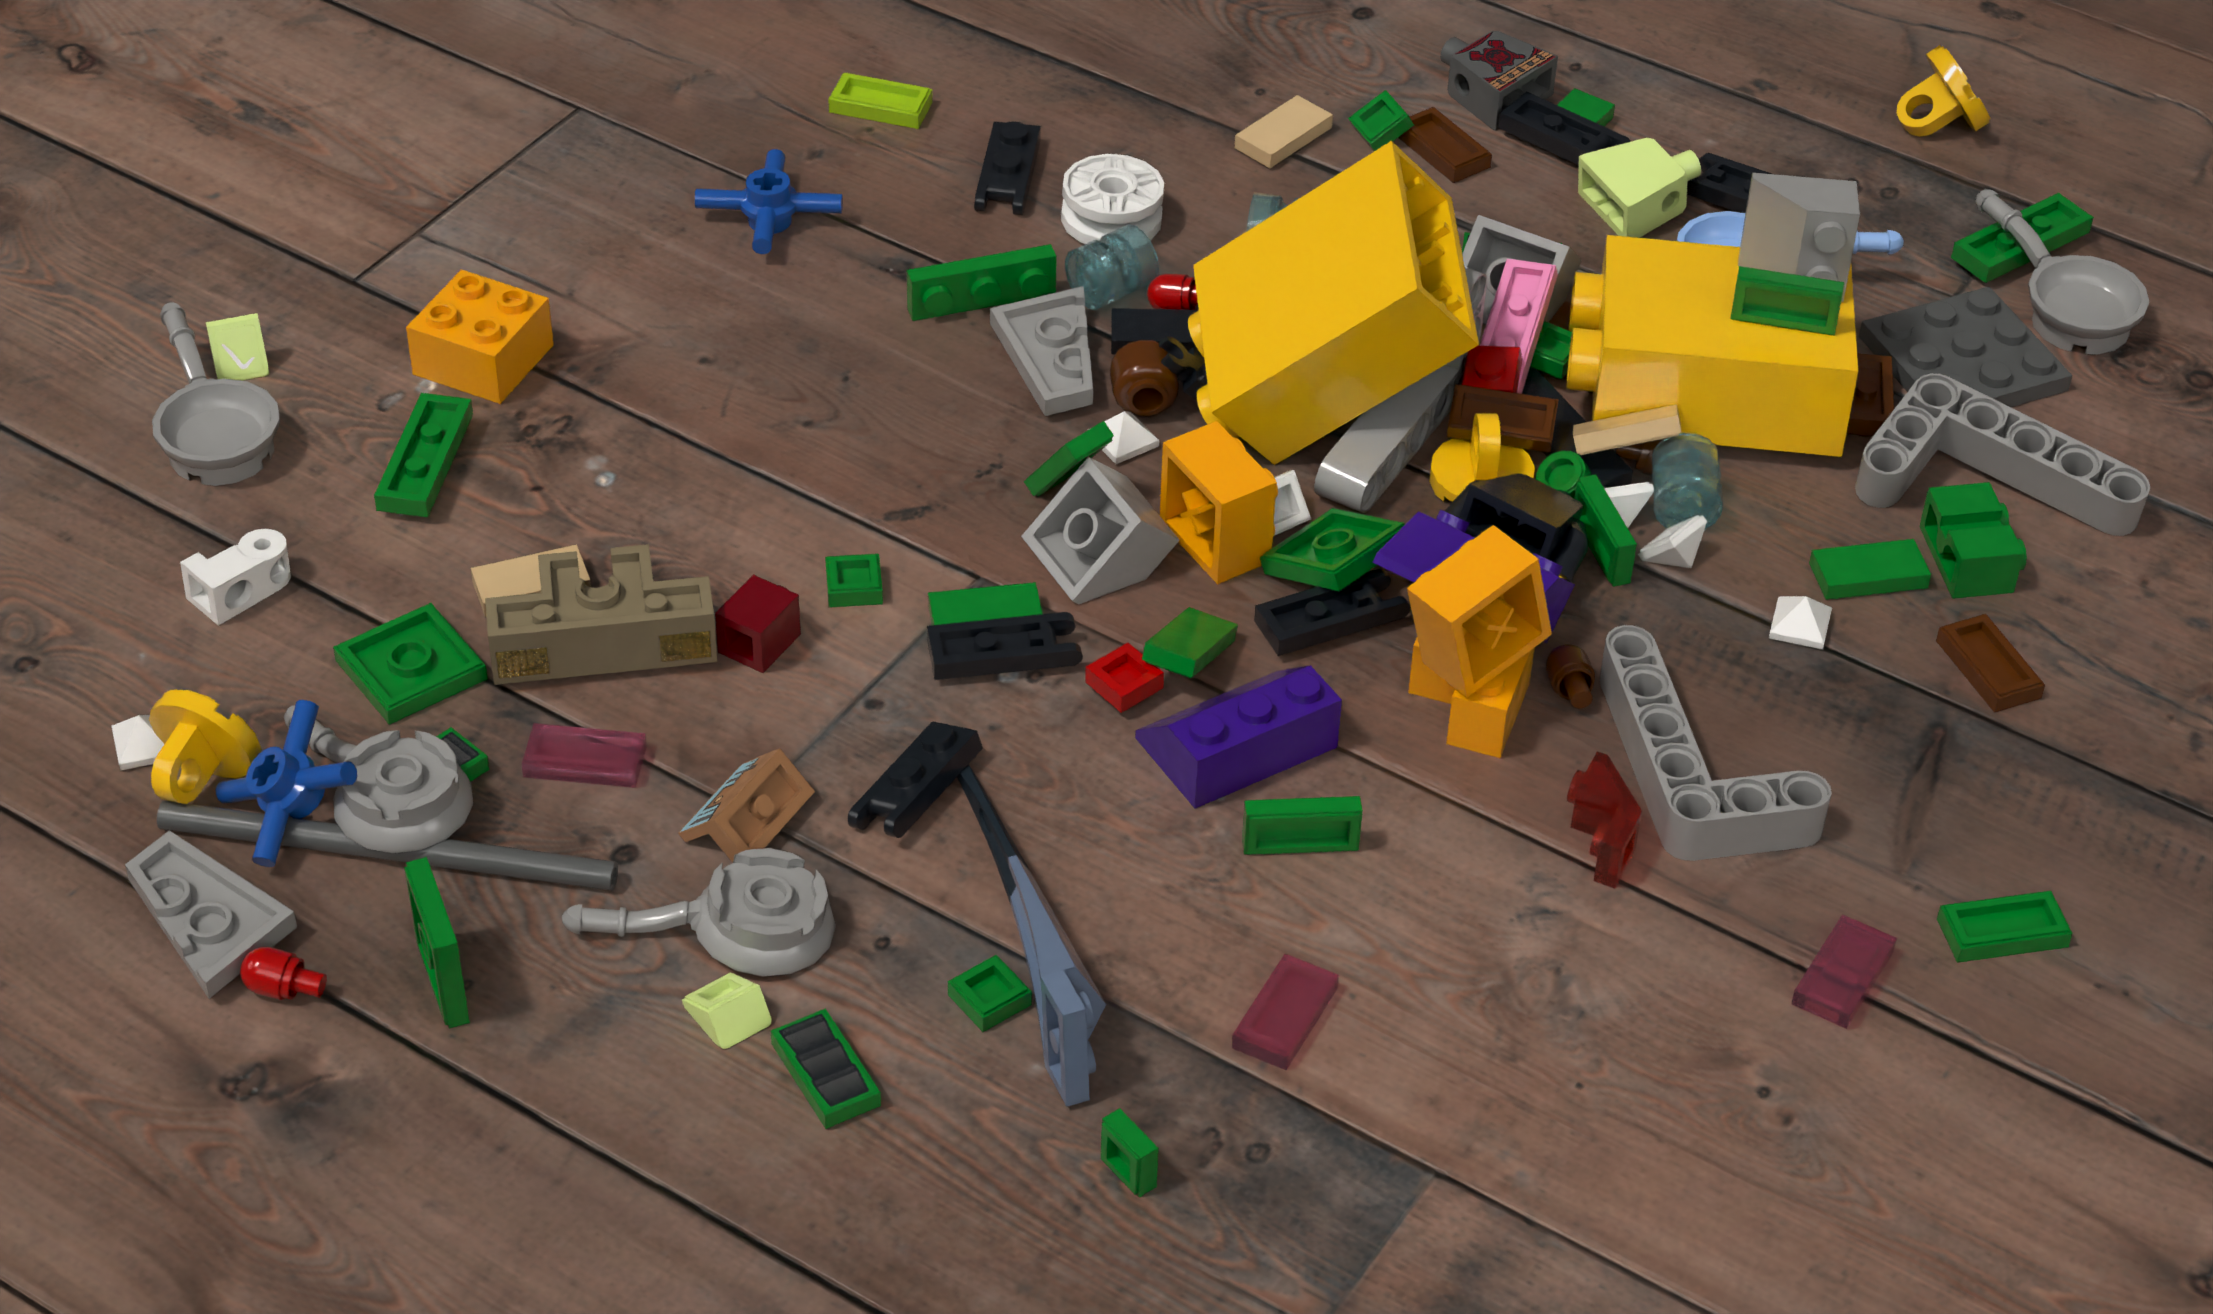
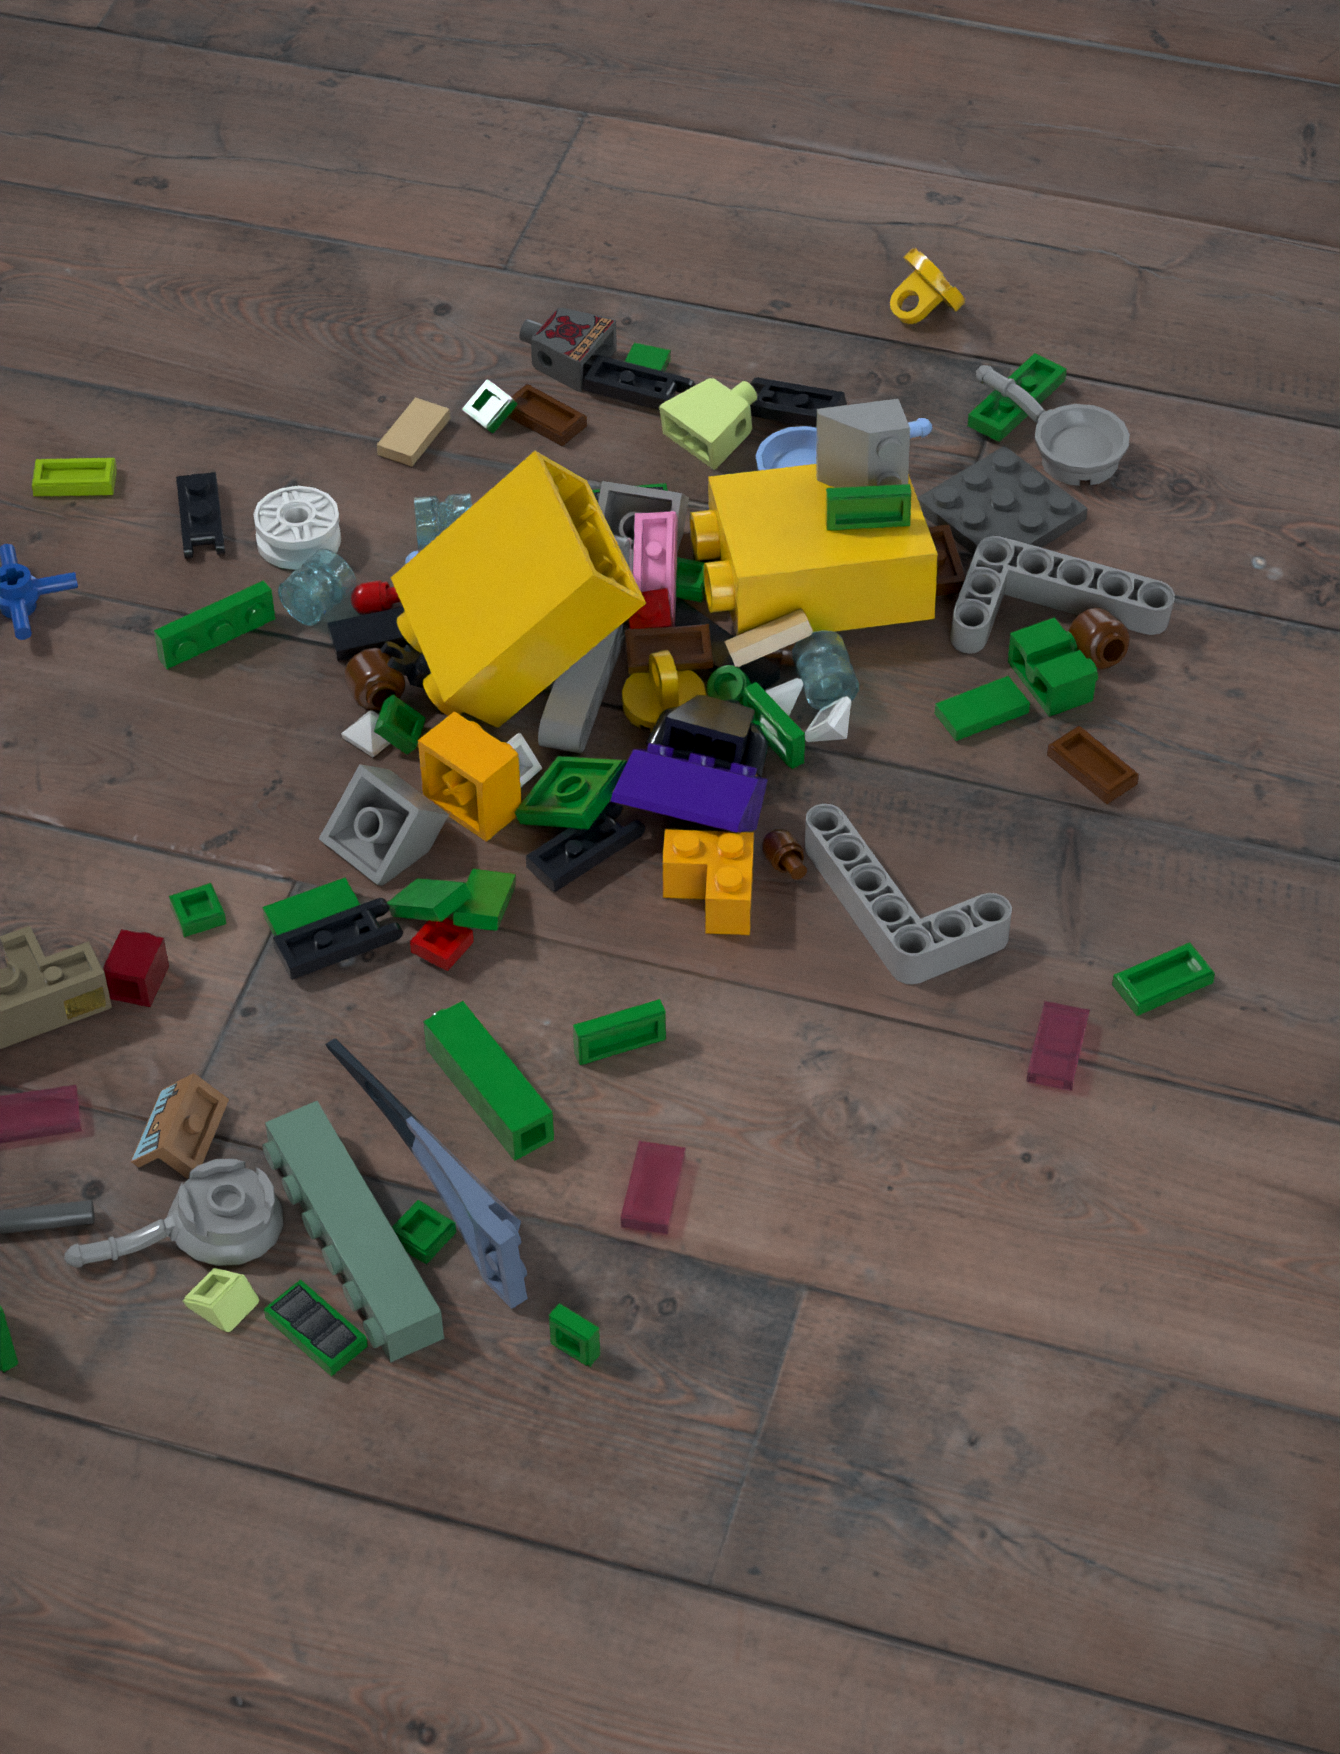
camera: 15 degrees left, 5 degrees up
(907, 973) = (354, 1232): none -> sand green brick
(916, 778) = (306, 1064): black hinge -> none
(1049, 347) = (288, 669): light grey wing -> none
(1069, 459) = (340, 766): green tile -> none
(1123, 626) = (429, 899): none -> green tile
(1126, 842) = (488, 1080): none -> green brick
(1153, 427) = (399, 724): none -> green tile
(1245, 734) = (549, 964): dark purple slope -> none
(1479, 610) = (712, 827): light orange brick -> none
(1608, 813) = (847, 961): clear red slope -> none
(1800, 621) = (942, 765): white slope -> none
(2043, 520) = (1100, 637): none -> reddish brown head

